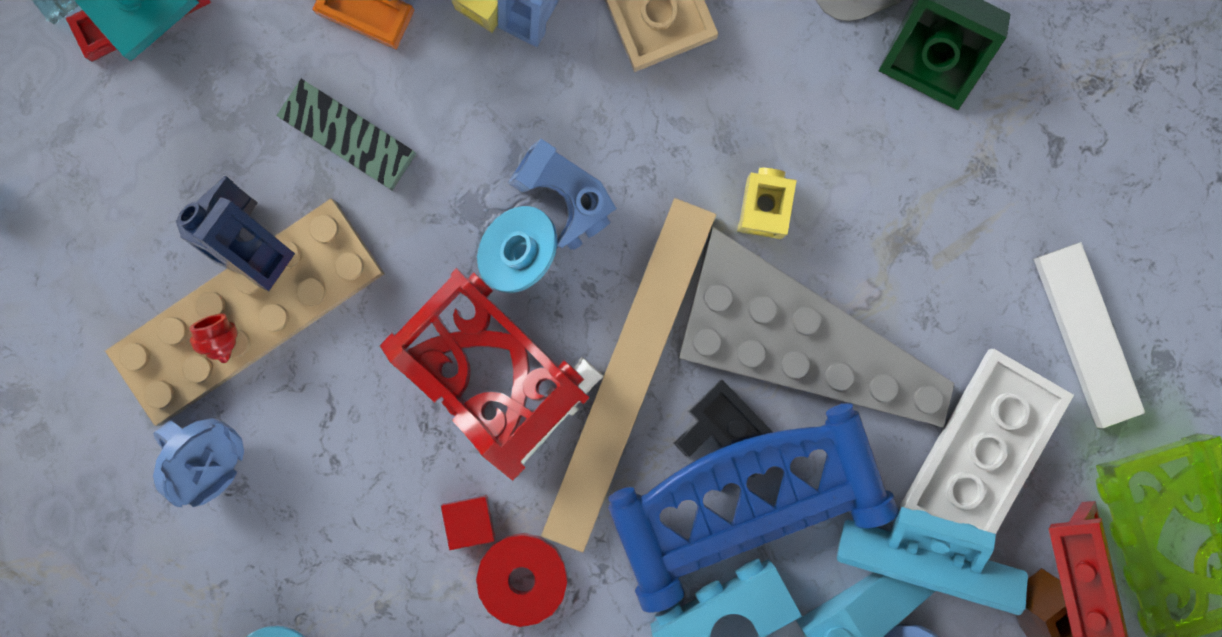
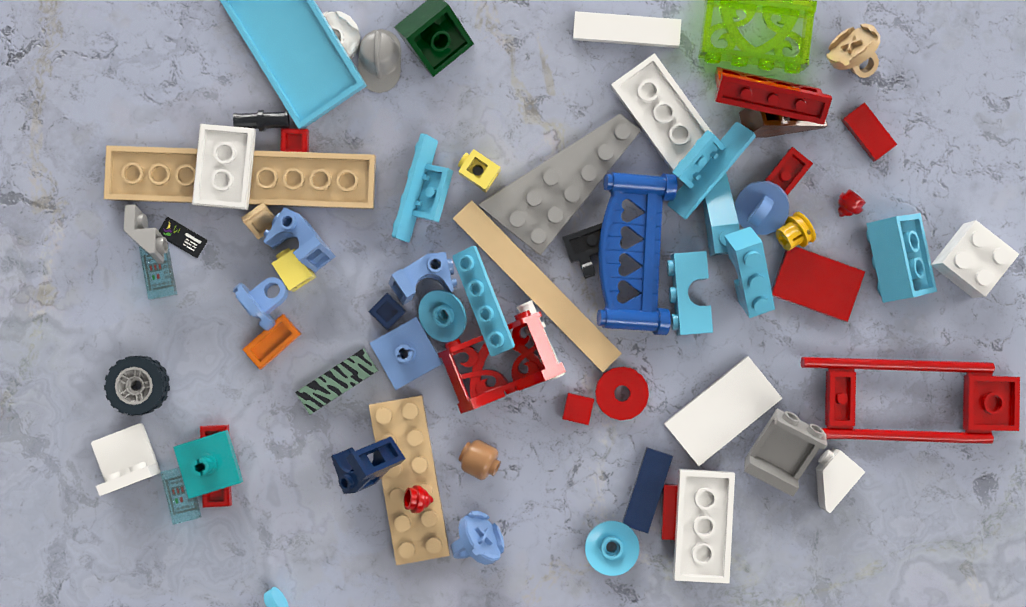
camera: 65 degrees left, 0 degrees up
(321, 406) = (479, 459): none -> medium nougat head
(436, 220) = (406, 353): none -> medium blue tile
(487, 163) = (387, 311): none -> dark blue tile
(565, 302) = (483, 301): none -> medium azure bracket
(697, 133) = (424, 190): none -> medium azure bracket

